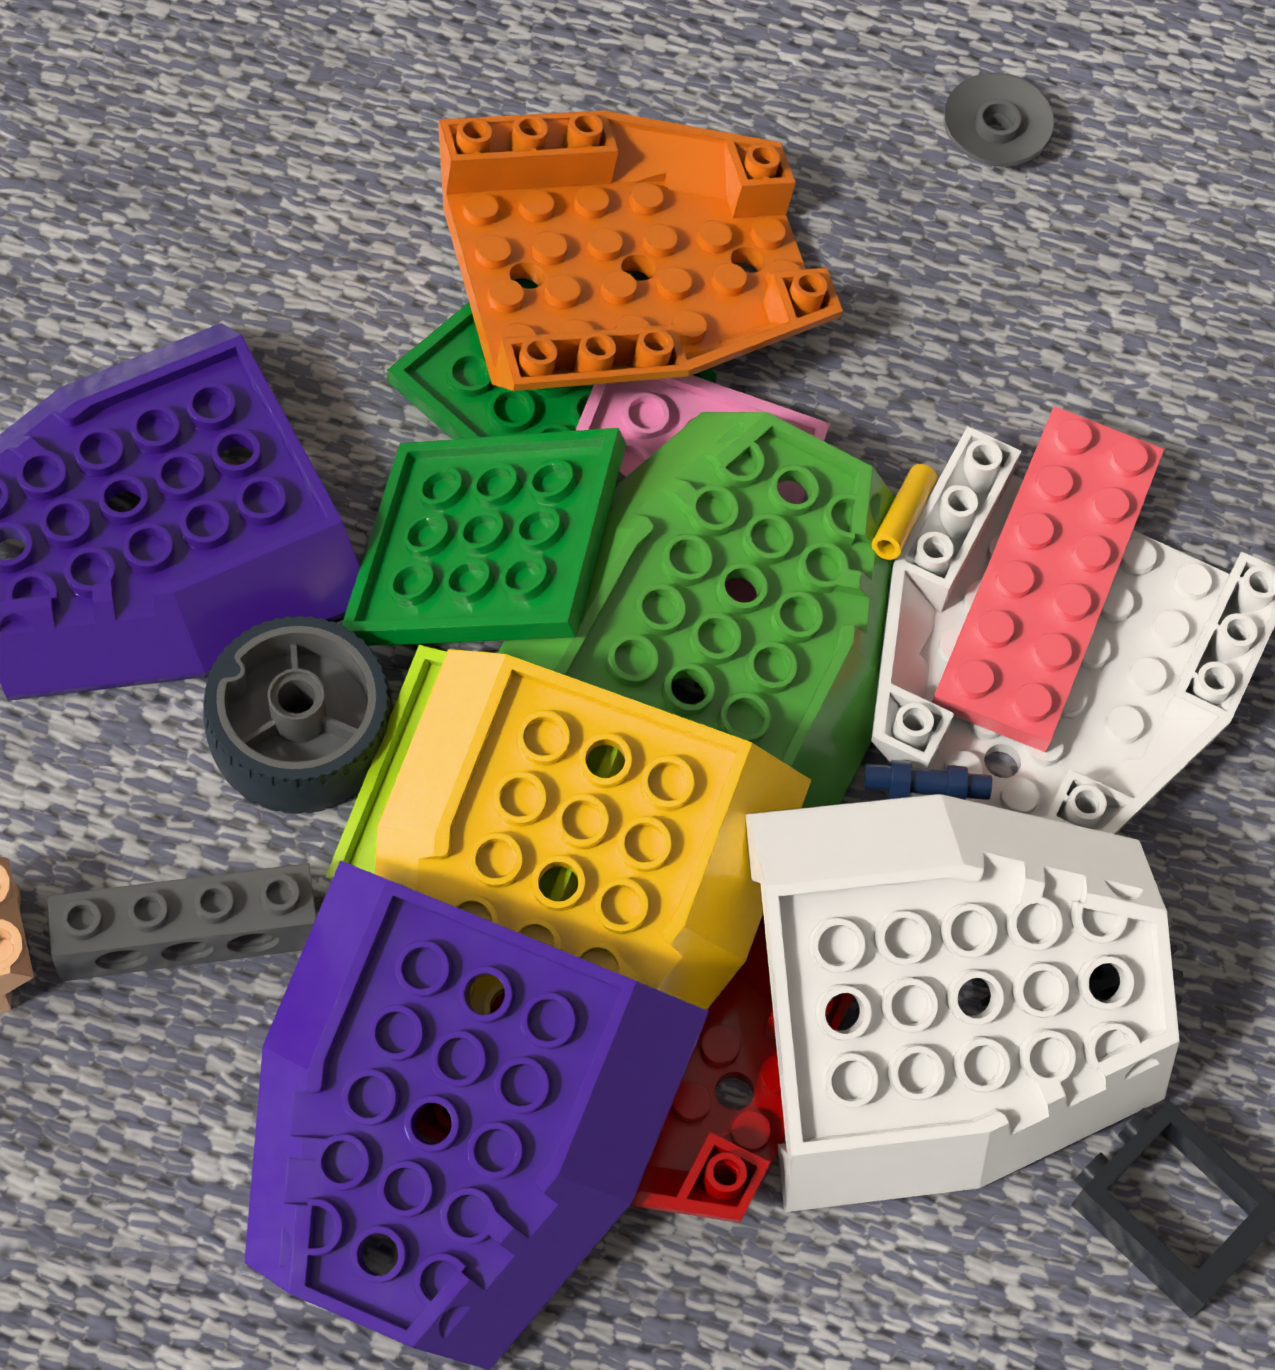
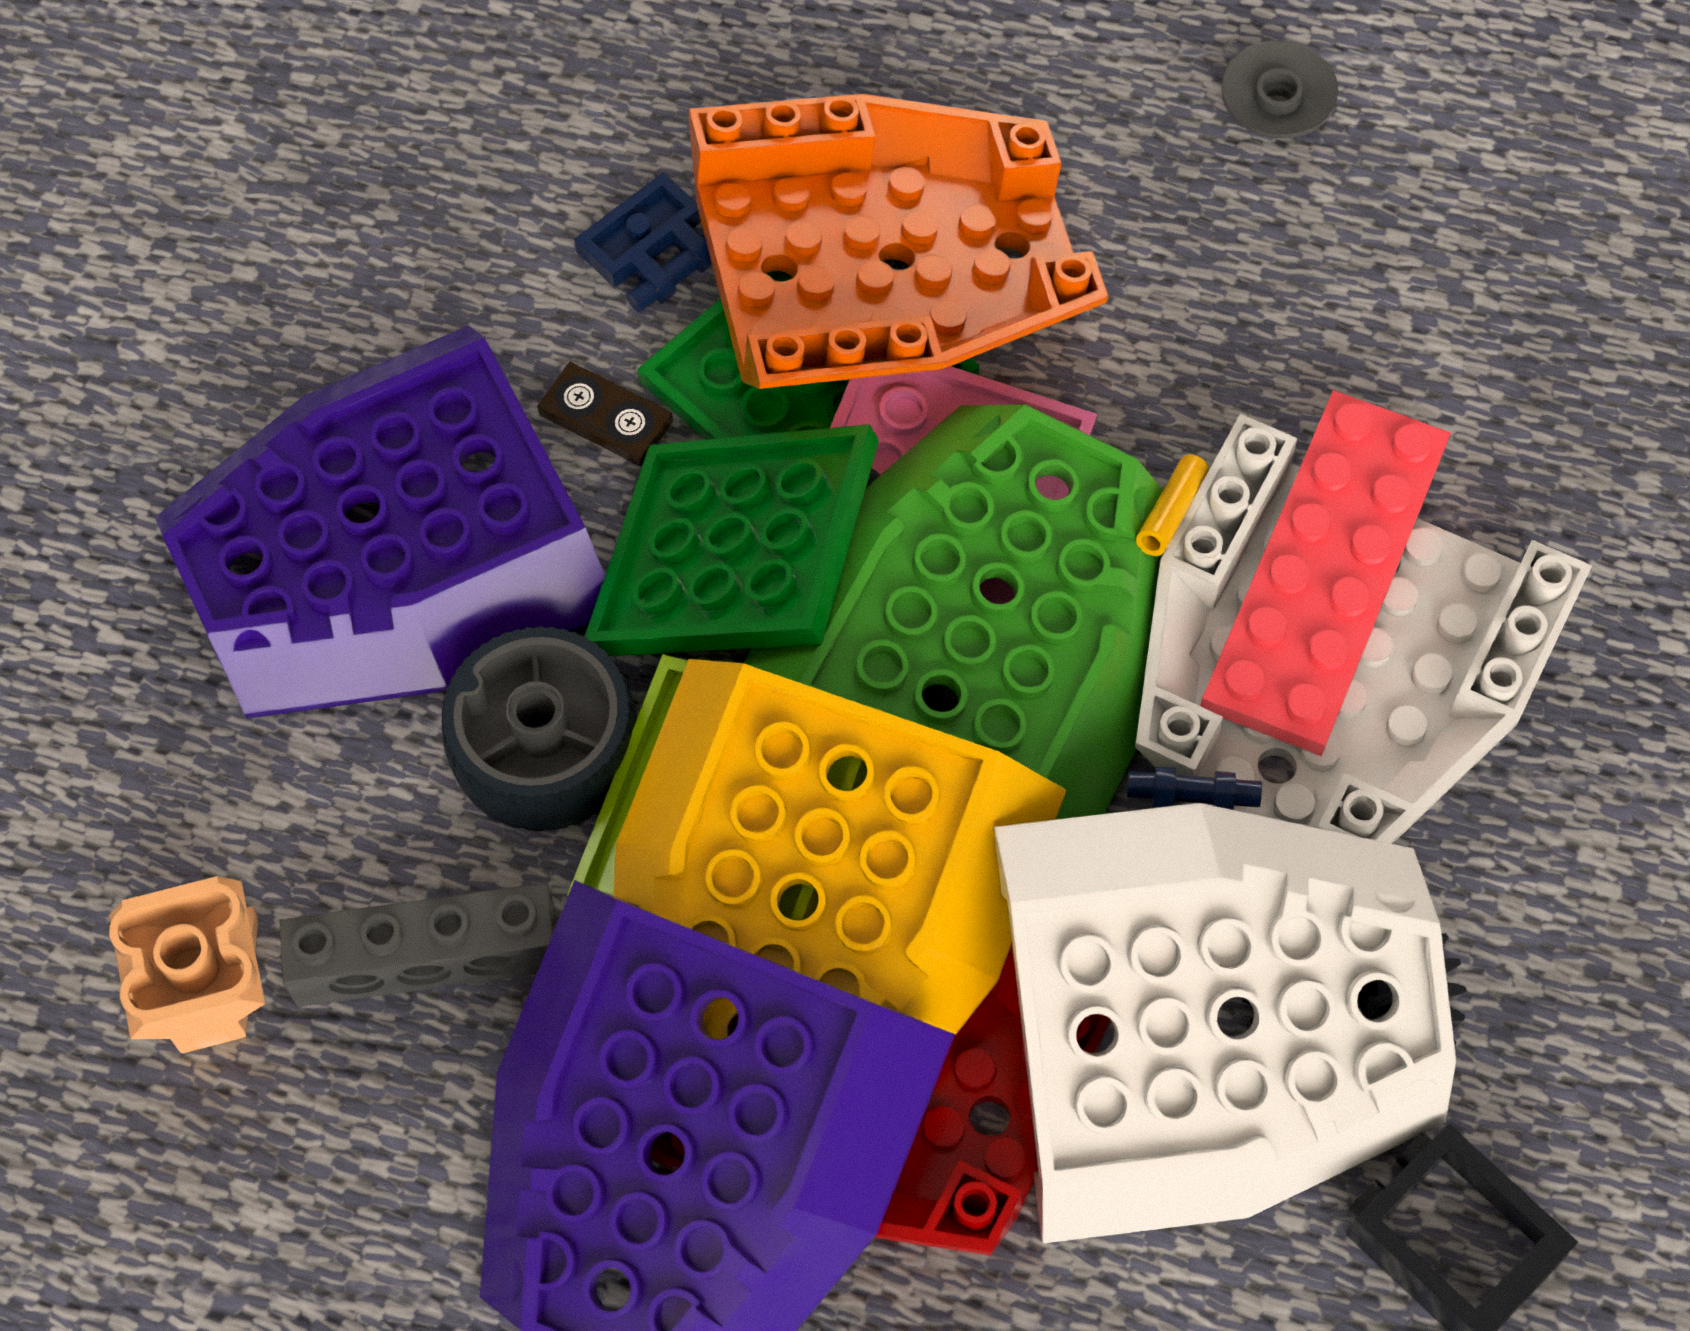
camera: 10 degrees right, 0 degrees up
(355, 411) = (605, 413): none -> tile
(386, 237) = (640, 230): none -> dark blue plate

